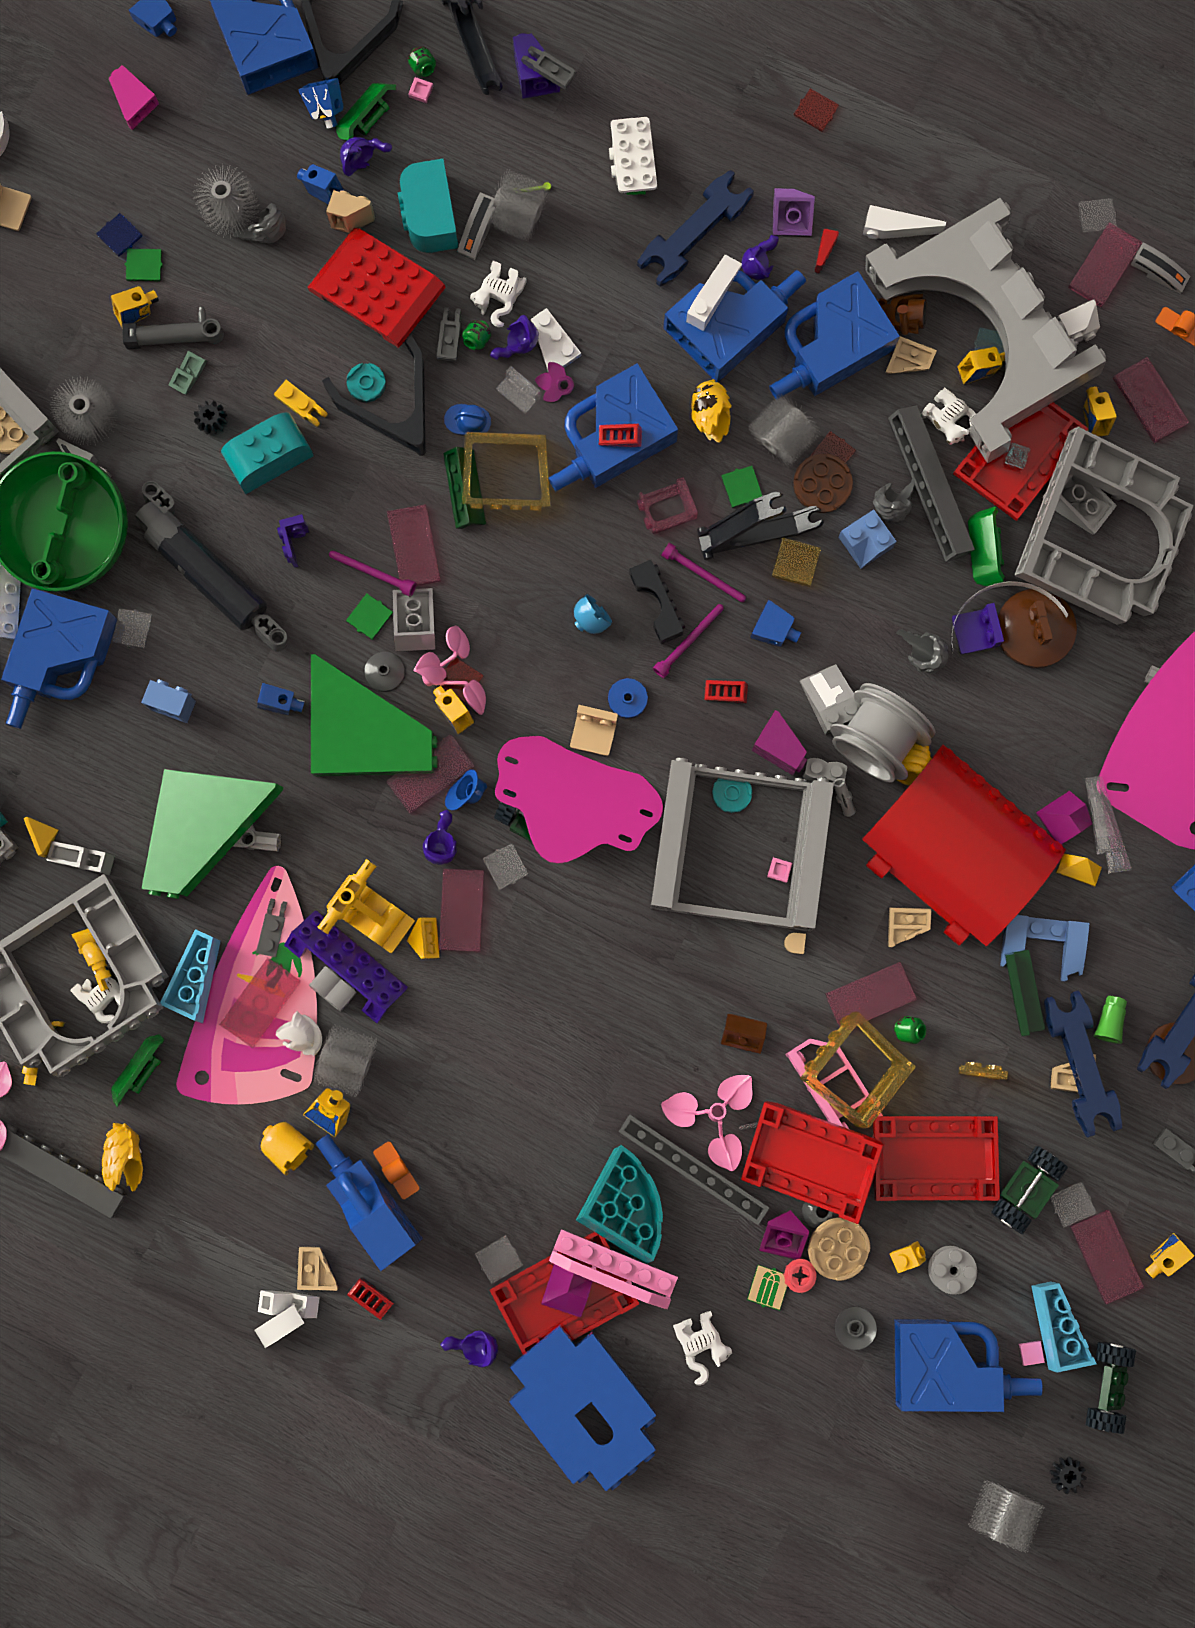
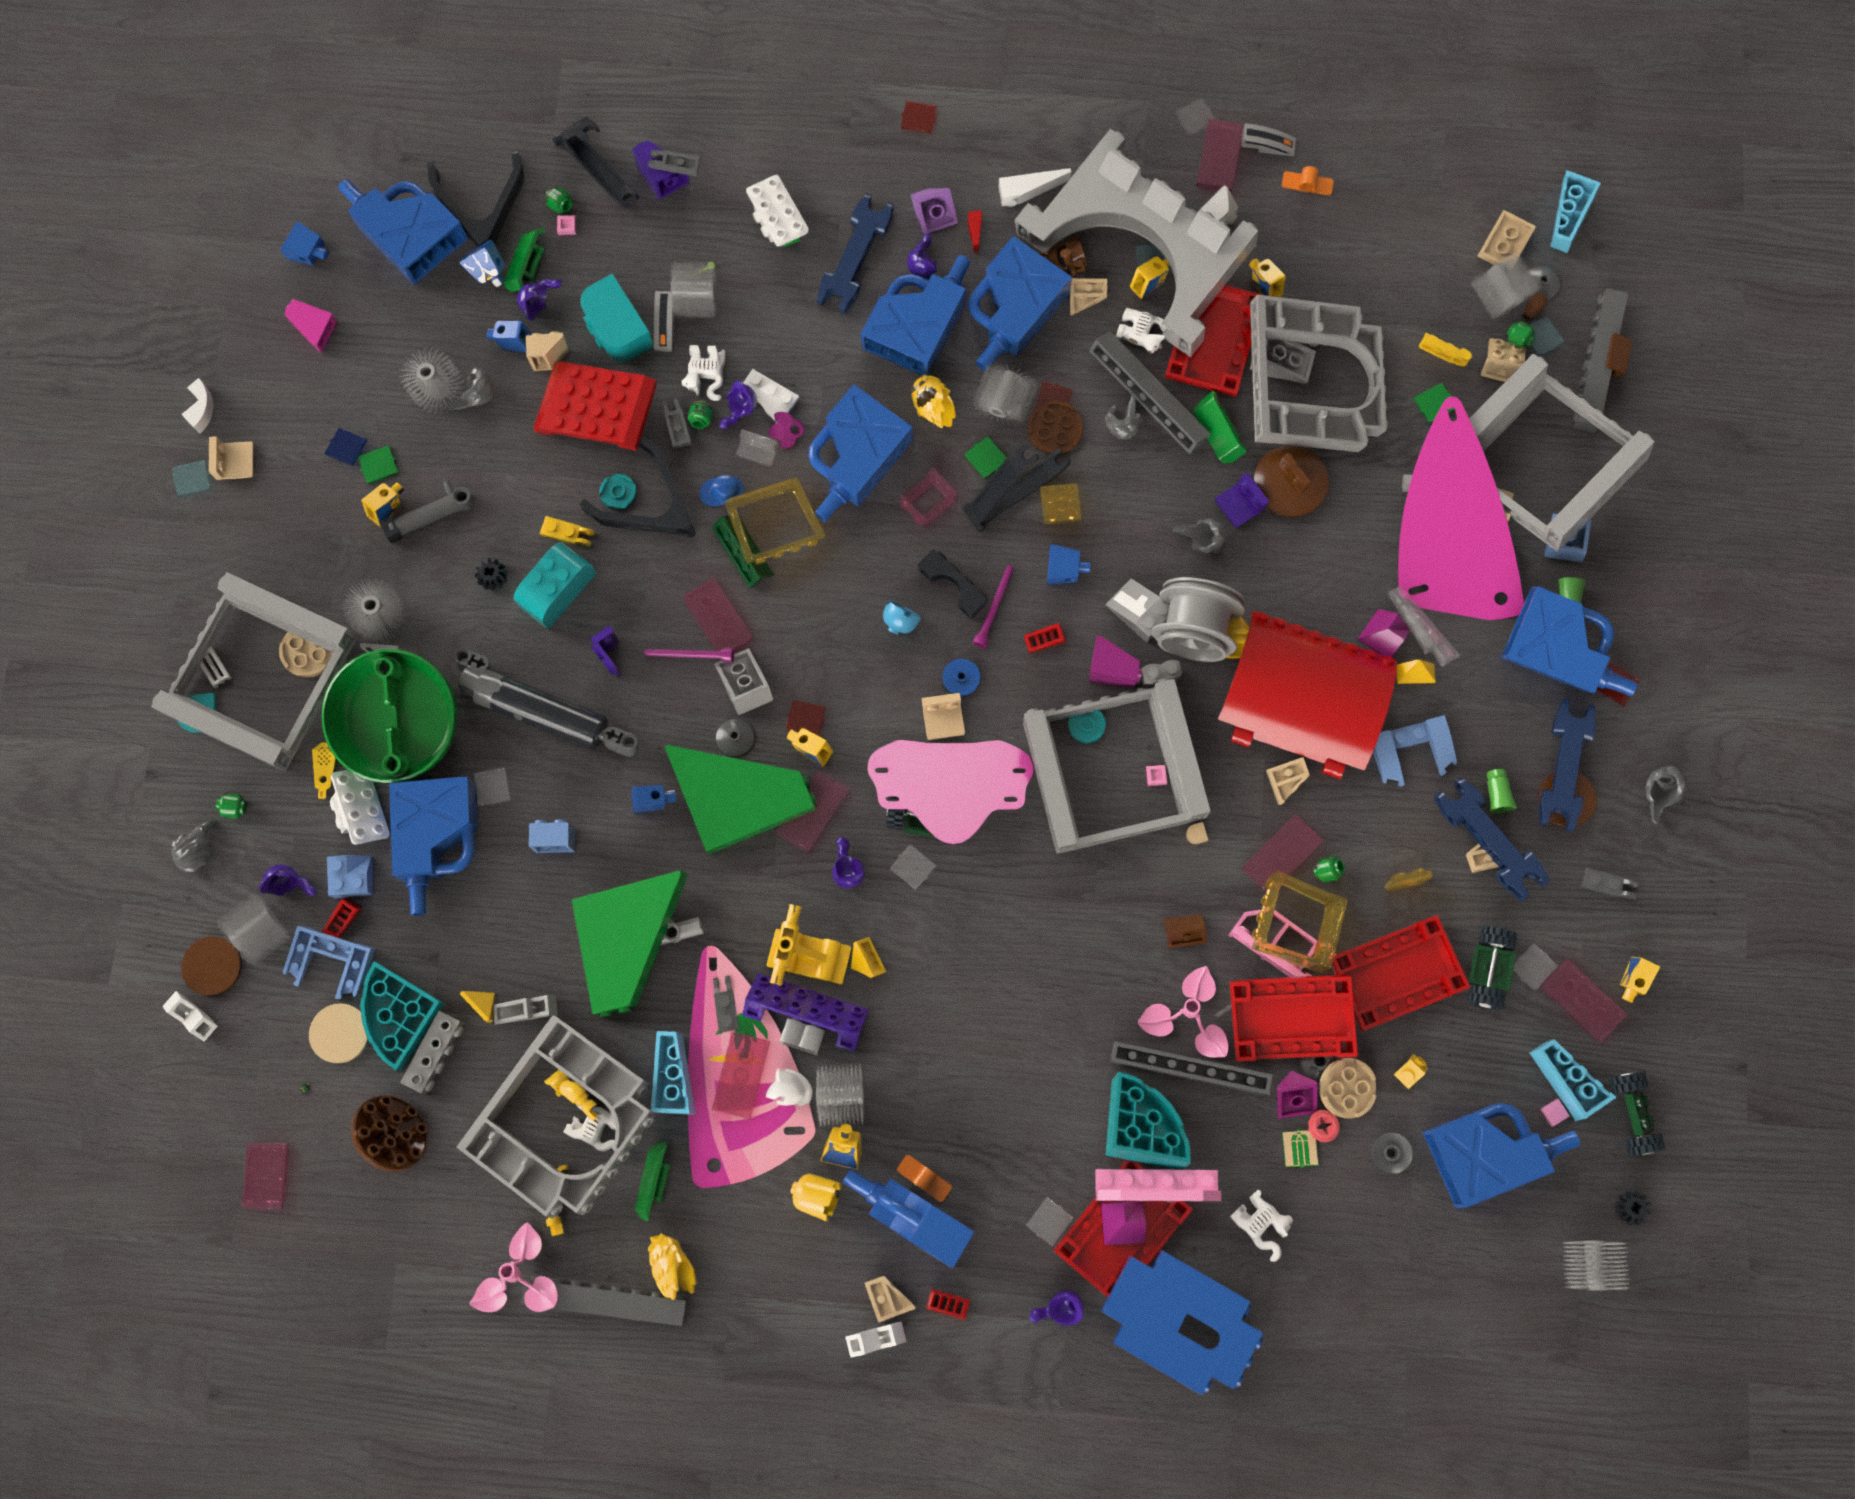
camera: 20 degrees left, 5 degrees down
(188, 373) = (455, 543): sand green slope -> none
(279, 1326) = (876, 1362): white brick -> none
(369, 616) = (702, 694): green piece -> none
(434, 673) = (781, 720): bright pink plant -> none
(461, 910) = (889, 921): clear pink tile -> none
(466, 790) = (851, 812): blue piece -> none
(636, 428) = (866, 456): red slope -> none
(671, 552) = (949, 537): magenta piece -> none
(713, 292) = (895, 299): white slope -> none
(844, 797) = (1194, 698): light grey pin -> none
(867, 539) = (1114, 460): medium blue slope -> none
(963, 1275) = (1466, 1066): light grey wheel -> none
(1015, 584) = (1266, 447): white sticker -> none
(1017, 455) = (1213, 341): clear light blue tile -> none
(1024, 992) = (1414, 797): dark green panel -> none
(1150, 400) = (1306, 253): clear pink tile -> none

